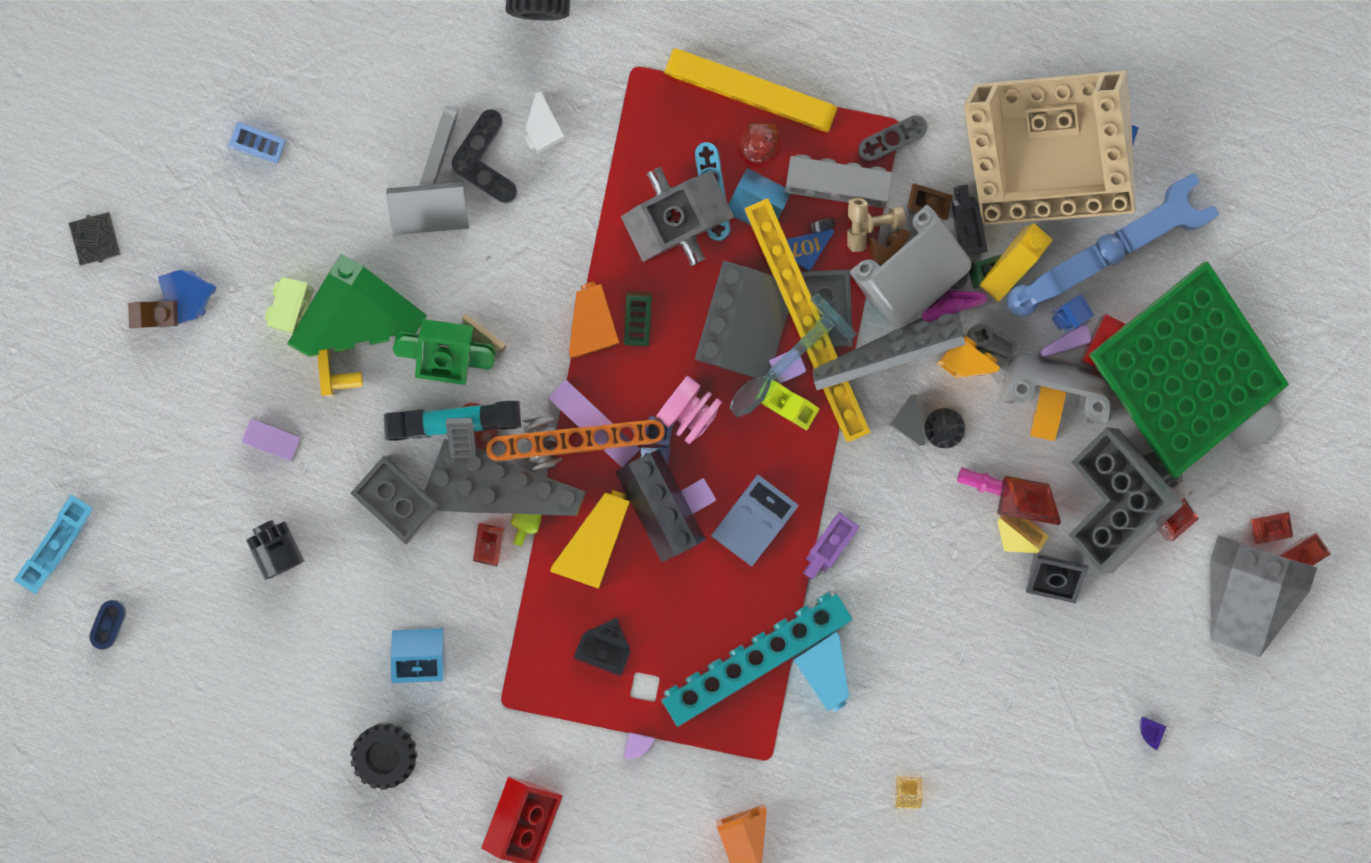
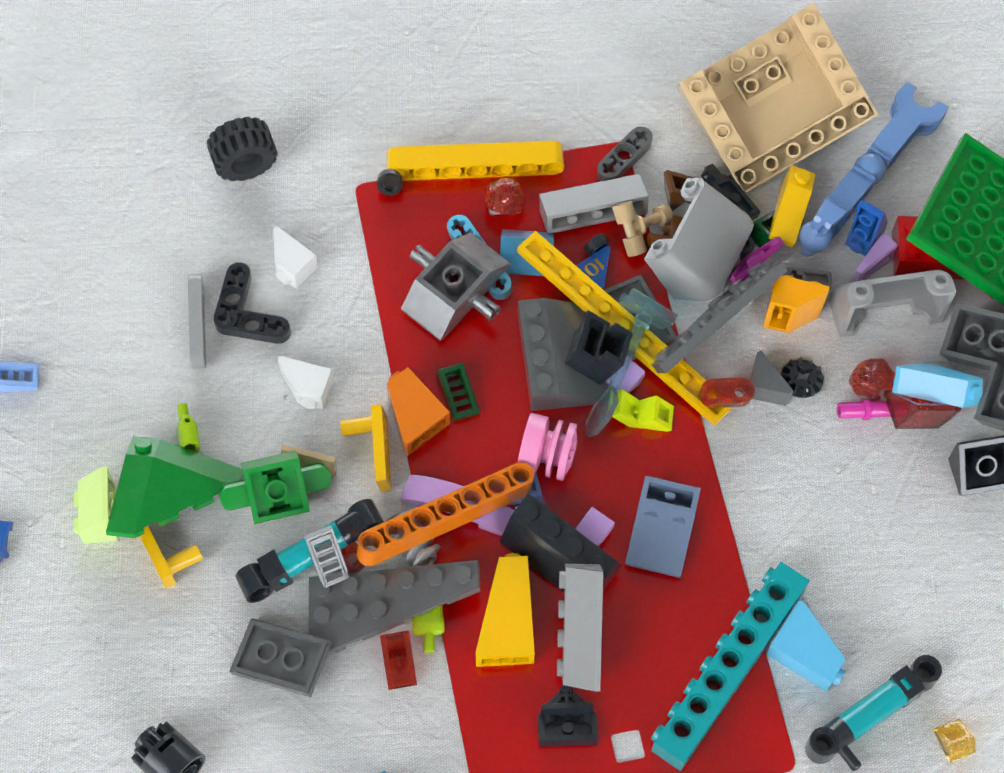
camera: 25 degrees left, 25 degrees down
(271, 439) = (122, 650): lavender slope -> none
(390, 261) = (187, 429): none -> lime piece
(427, 208) = (206, 366): tile -> none
(509, 257) = (306, 381): none -> white slope
(555, 323) = (378, 426): none -> yellow piece
(643, 585) = (582, 626): none -> light grey slope
(662, 82) = (389, 182): none -> black tile
(772, 336) = (598, 348): none -> black plate
(830, 544) = (748, 524): medium lavender hinge -> none
(851, 743) = (874, 708): none -> piece
(866, 422) = (725, 392): none -> clear red plate
(1004, 456) = (871, 378): none -> clear red hair
(1021, 535) = (926, 444): light yellow slope -> none
(1047, 413) = (891, 325): light orange slope -> none
(1051, 493) = (938, 384): none -> medium azure slope

